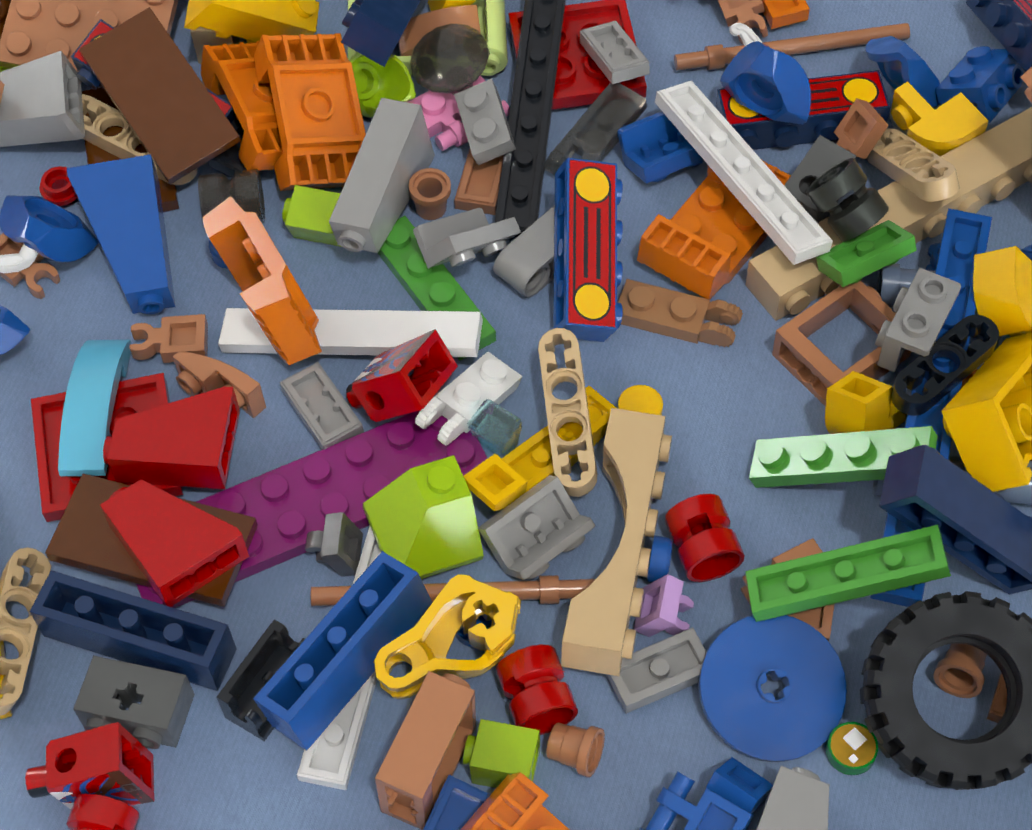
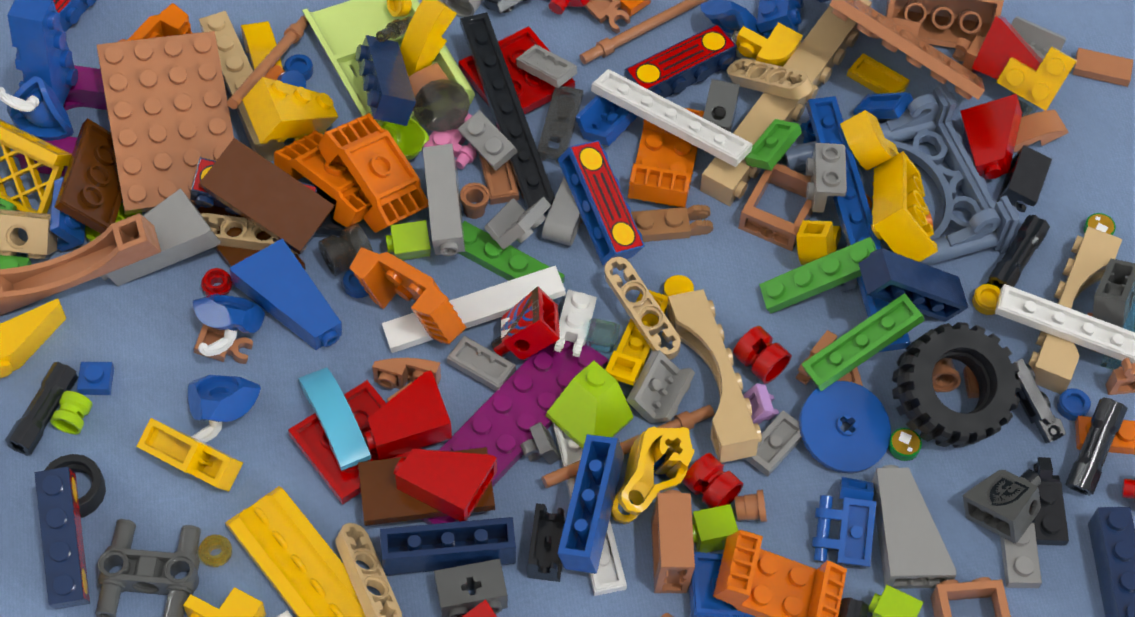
camera: 30 degrees left, 0 degrees up
(176, 334) = (359, 354): nougat plate -> none
(660, 558) = (744, 371): blue tile -> none
(767, 80) = (658, 53): blue hat -> none
(855, 212) = (749, 114): pearl dark grey wheel -> none
(860, 129) = (726, 66): nougat plate -> none
(939, 382) = (857, 208): black beam -> none

